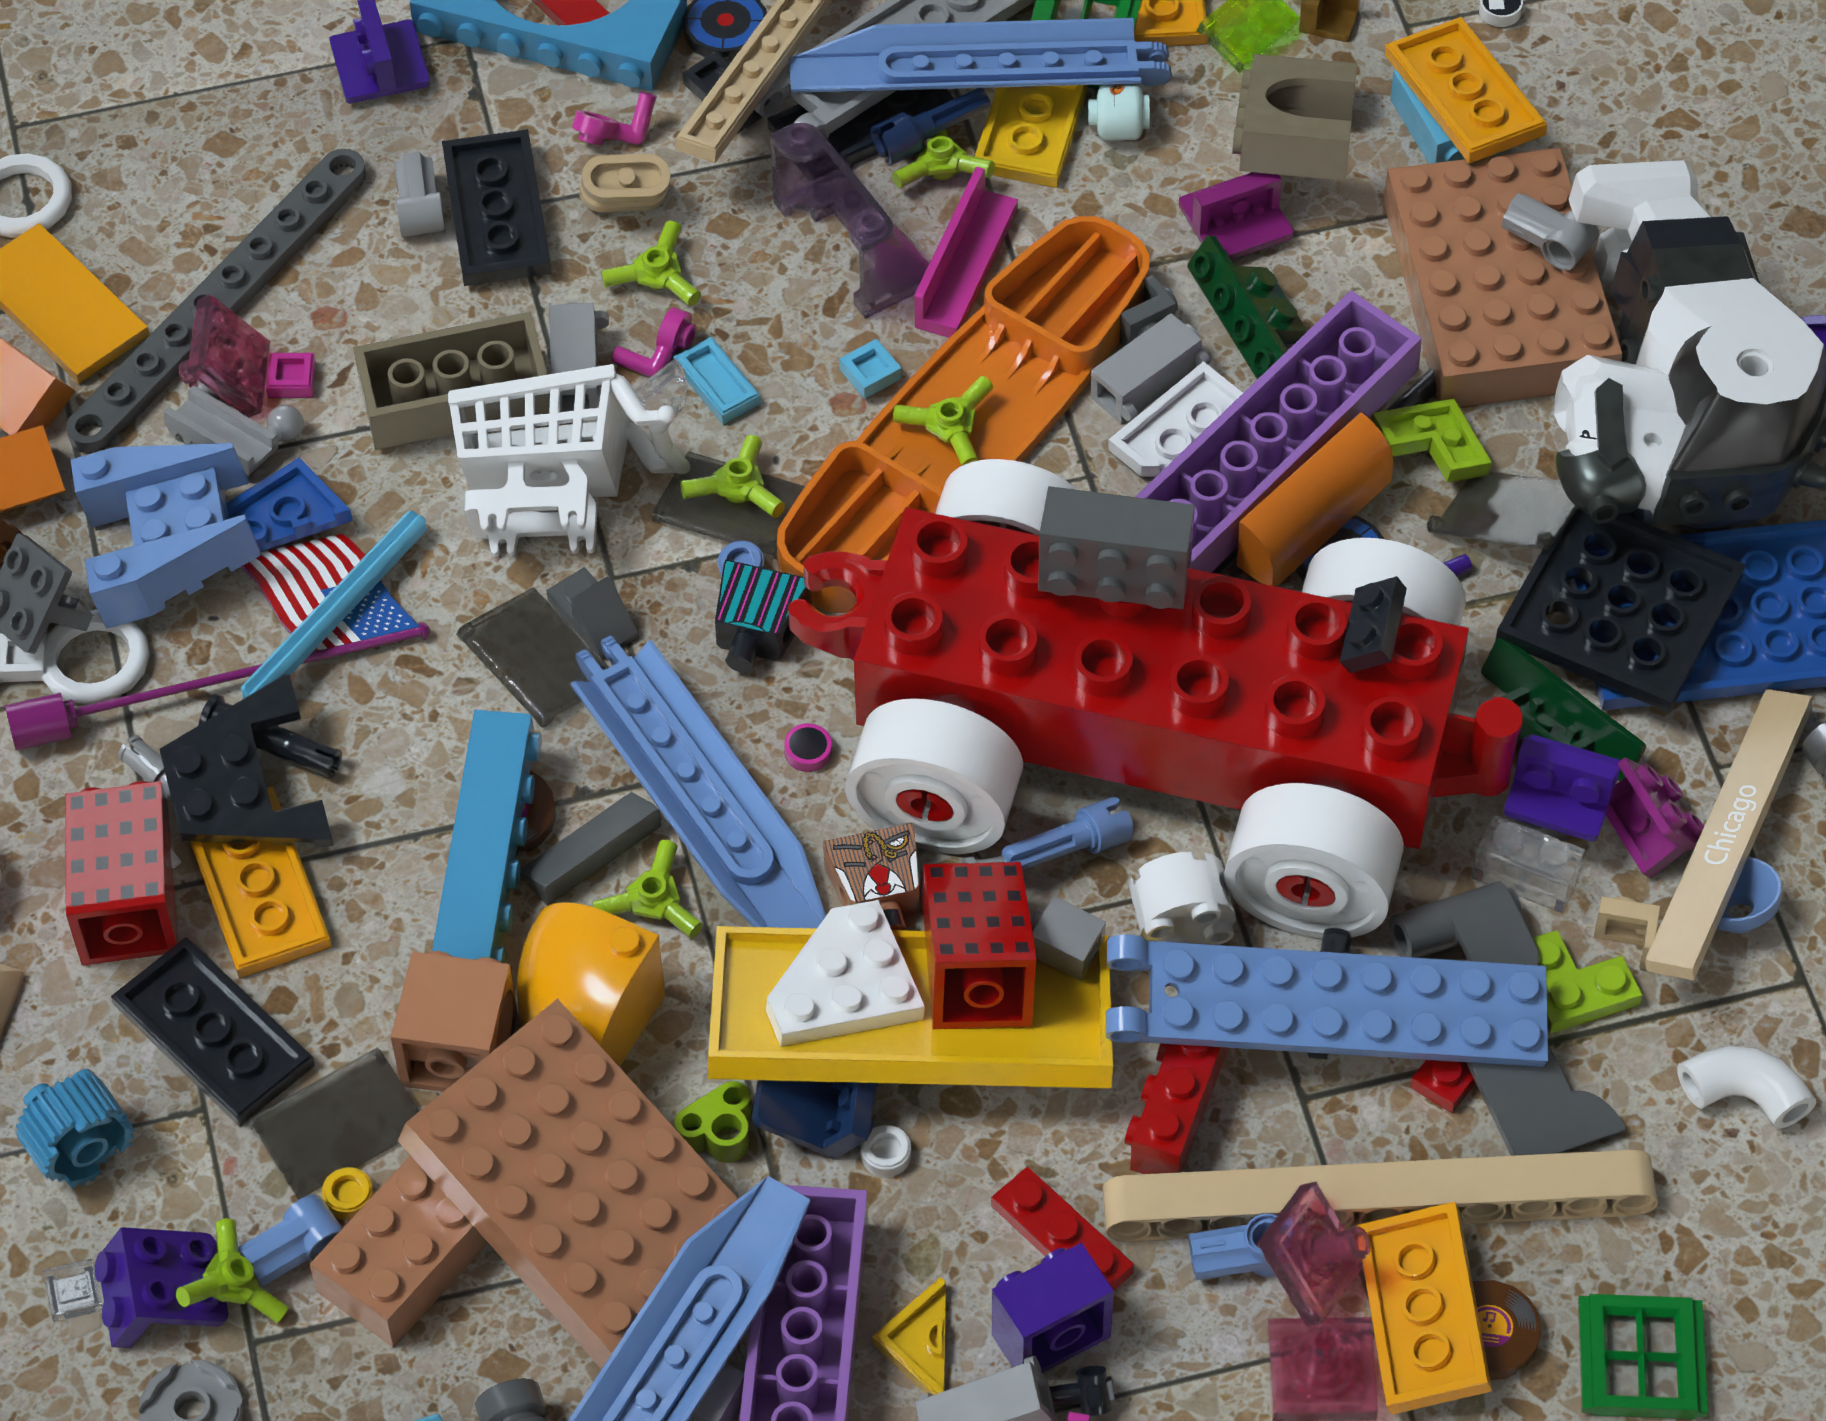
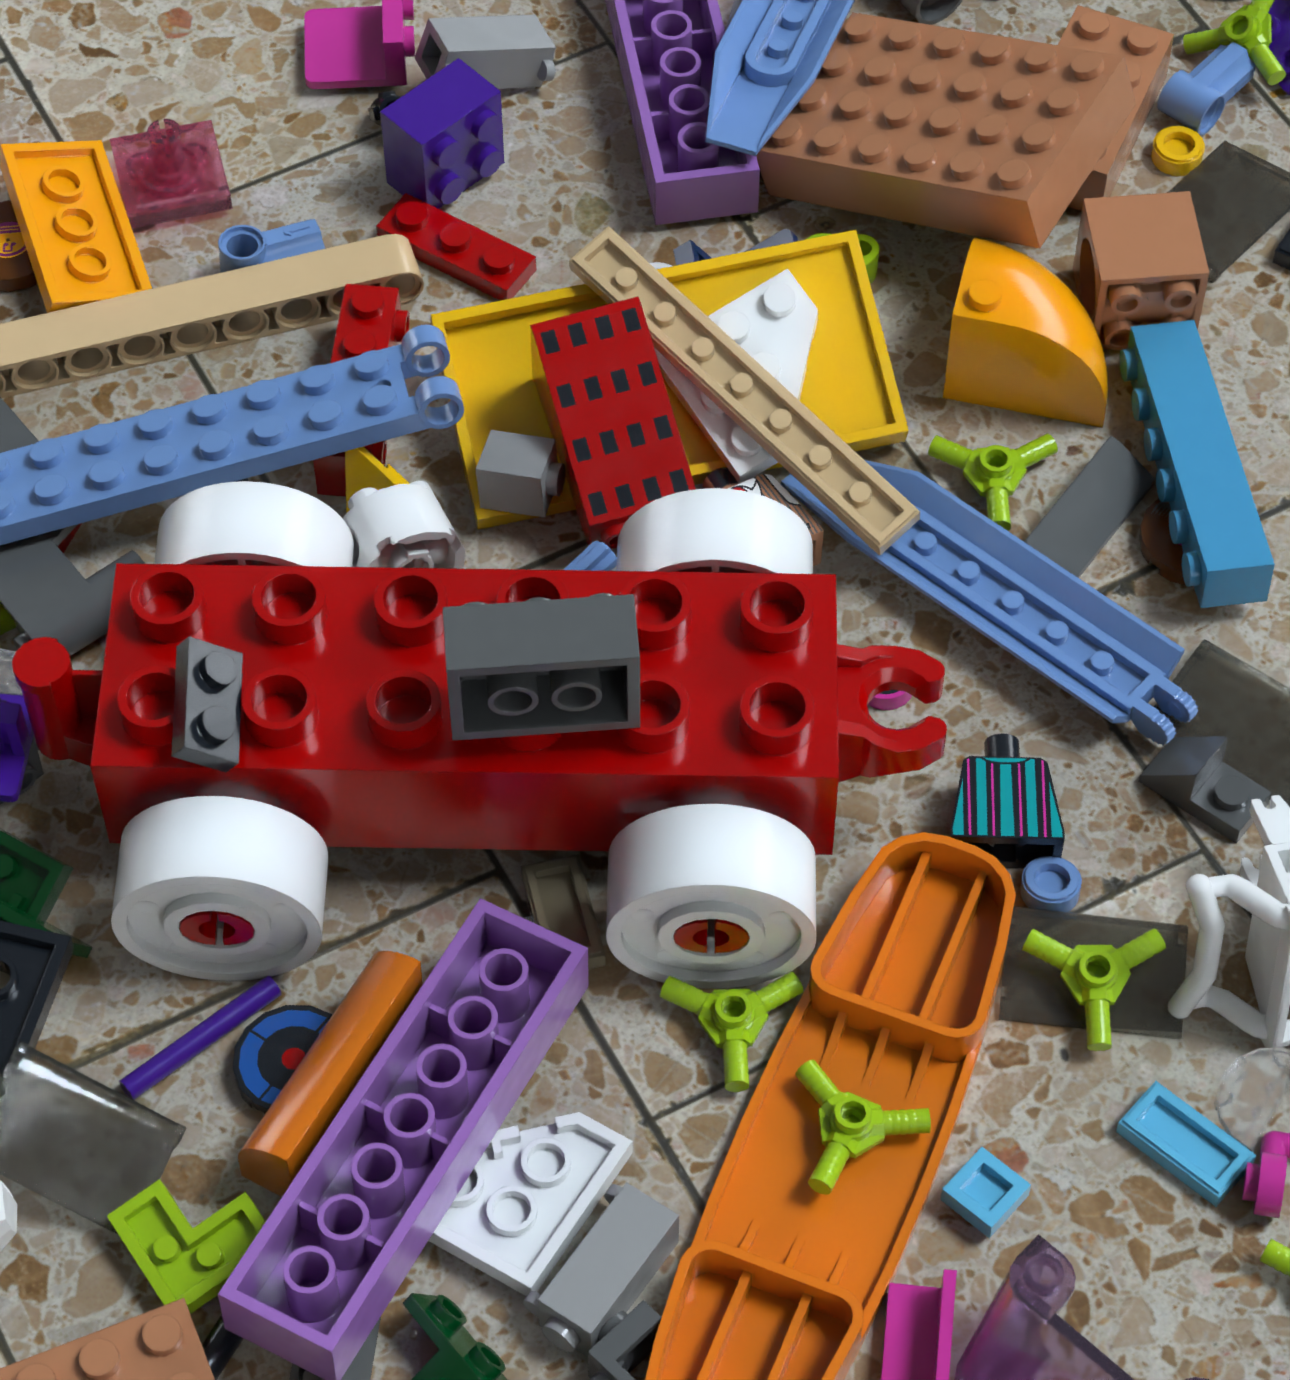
camera: 165 degrees right, 0 degrees up
(860, 944) = (749, 393): none -> tan tile
(917, 1339) = (572, 135): yellow tile -> none
(1313, 1253) = (189, 224): clear pink plate -> none

